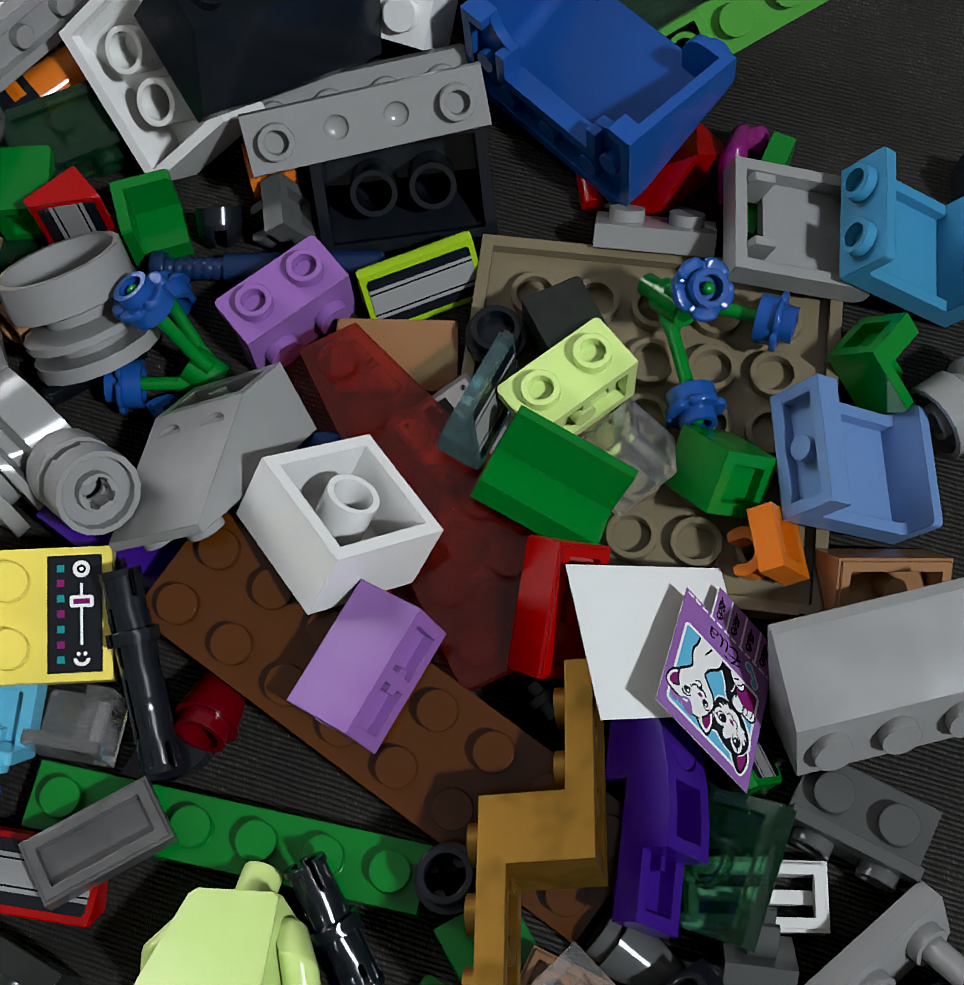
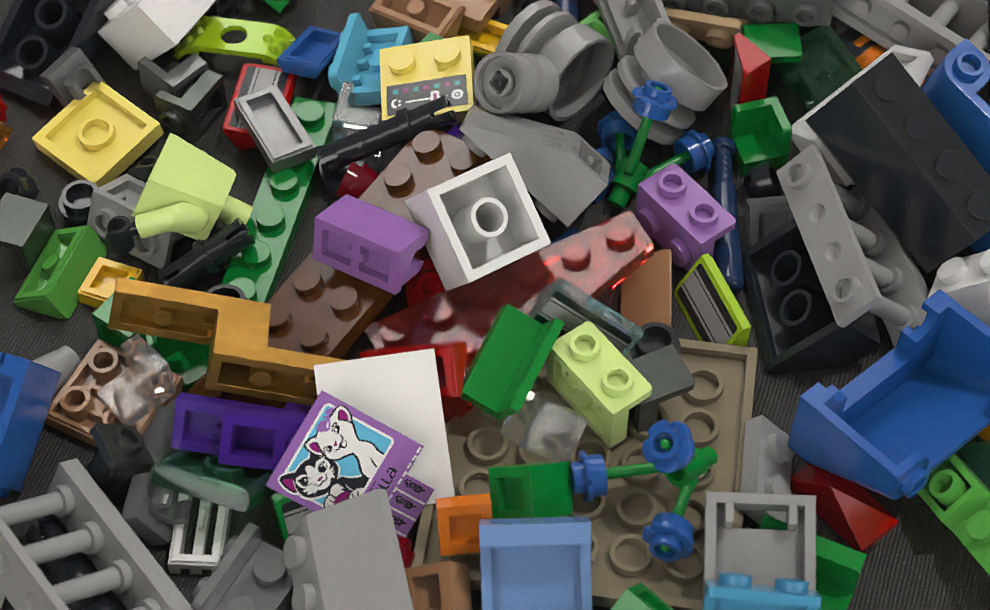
camera: 85 degrees right, 15 degrees down
(742, 142) = (855, 537): magenta arm -> none

